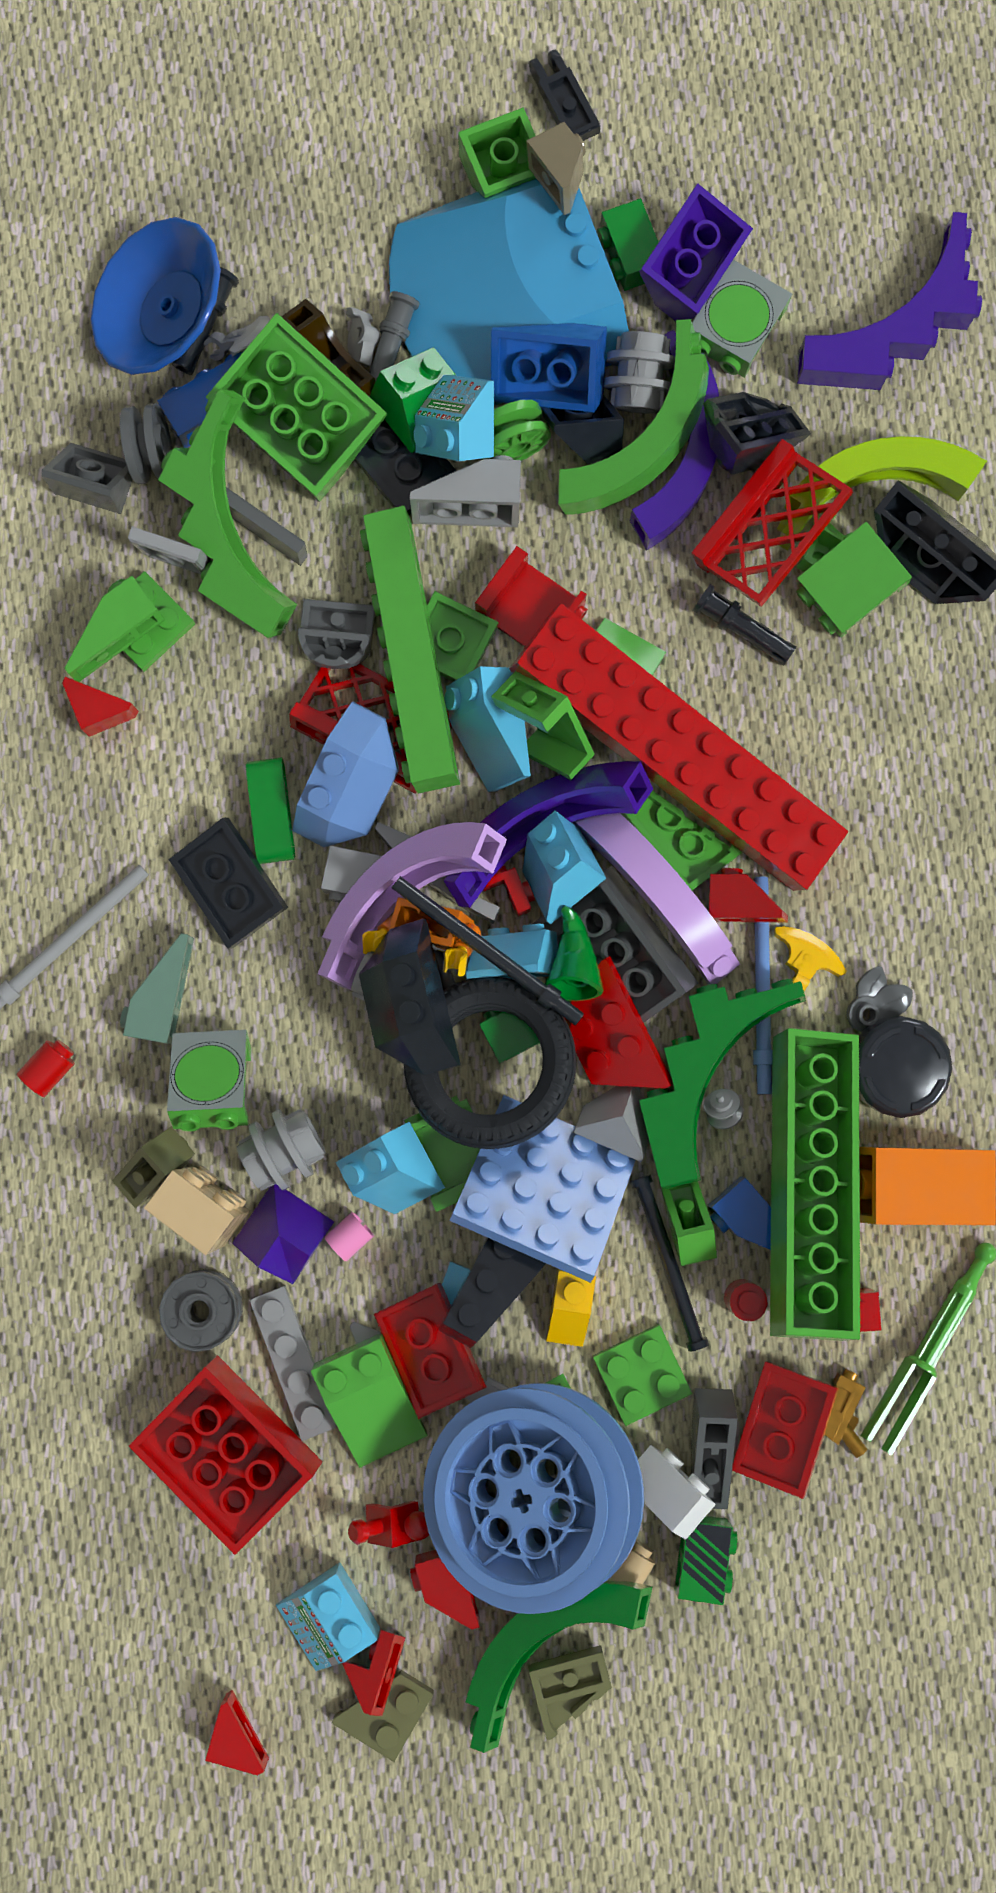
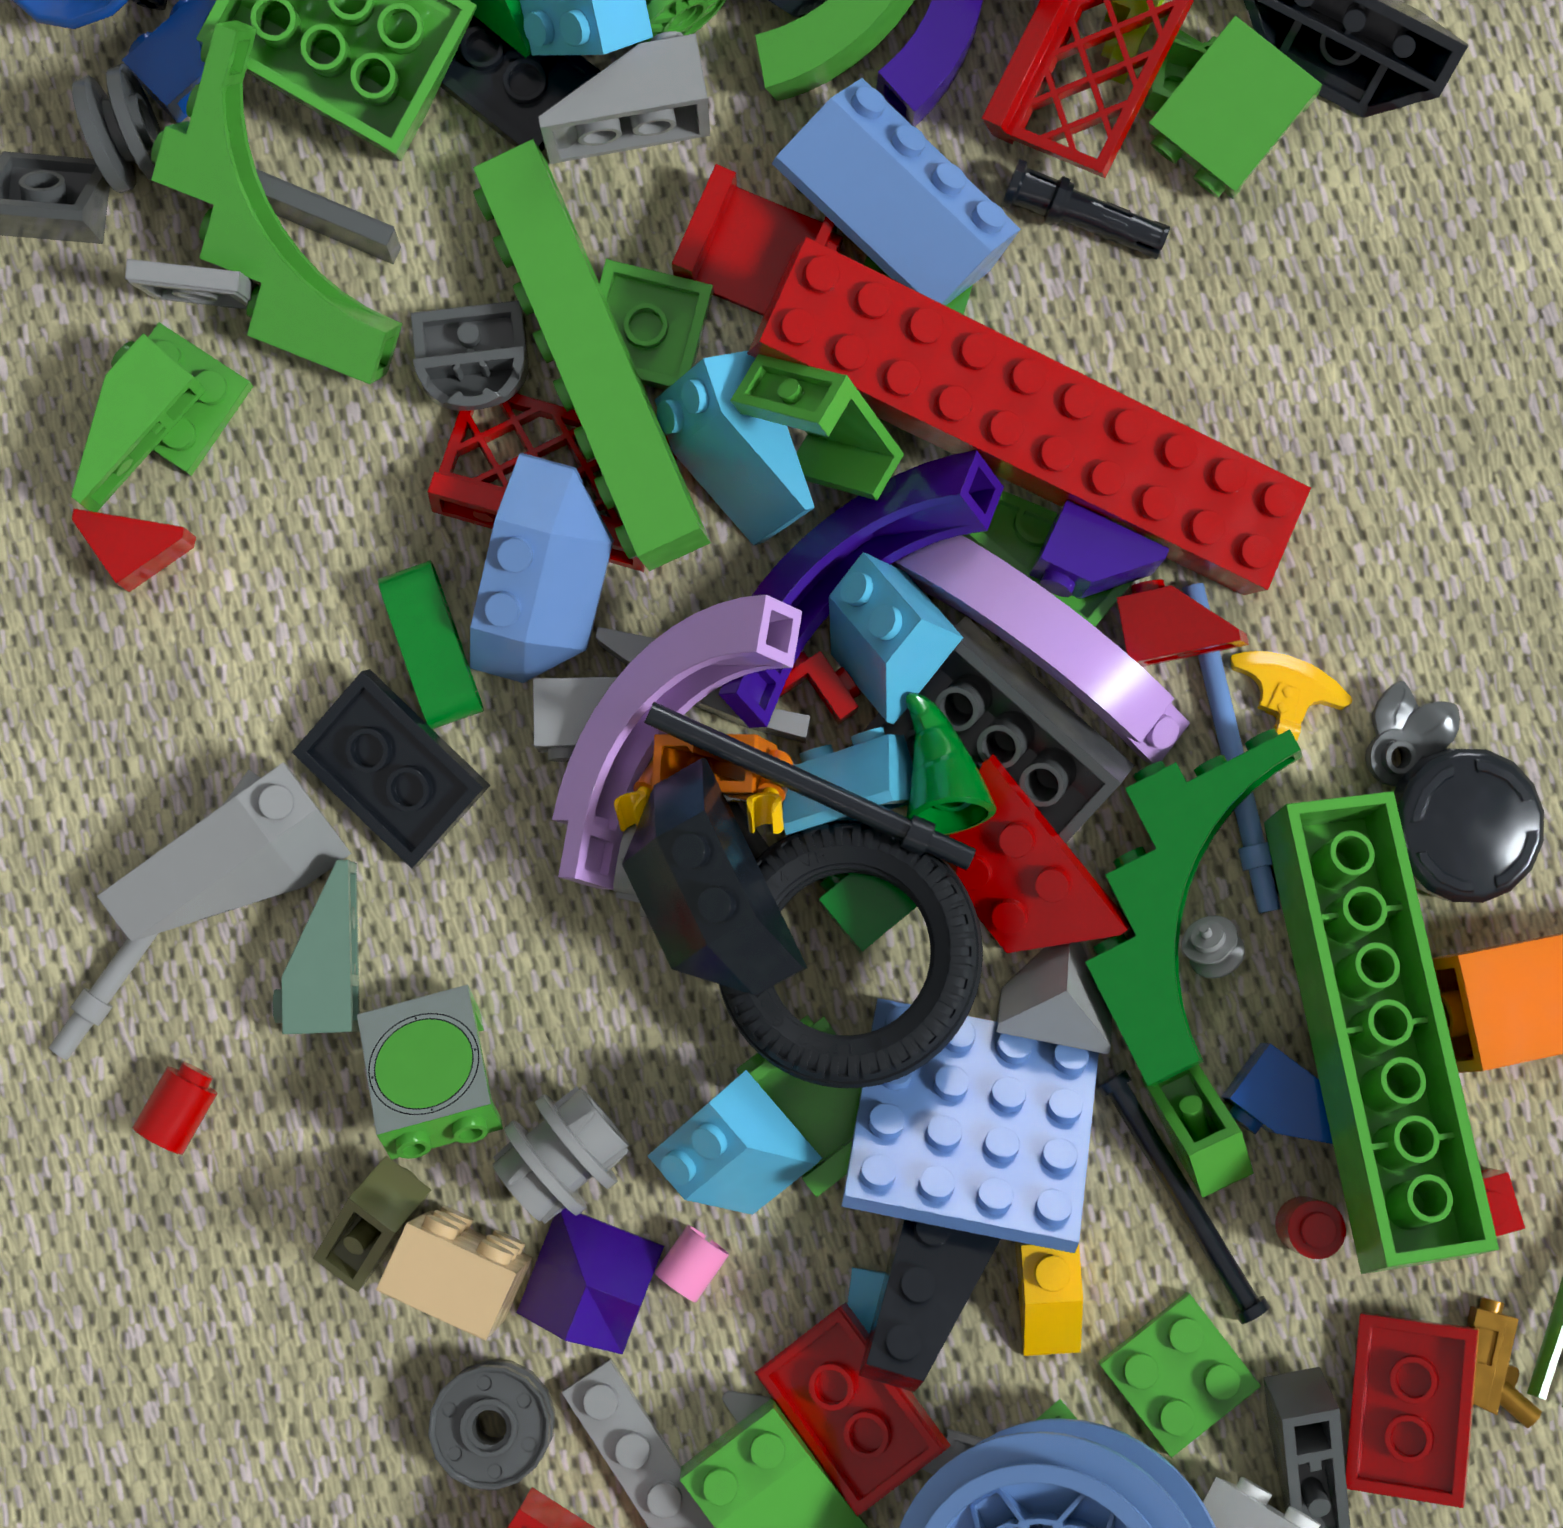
camera: 10 degrees left, 0 degrees up
(121, 916) = (240, 854): none -> light grey wedge
(626, 589) = (896, 195): none -> medium blue slope
(701, 844) = (1092, 554): none -> dark purple slope

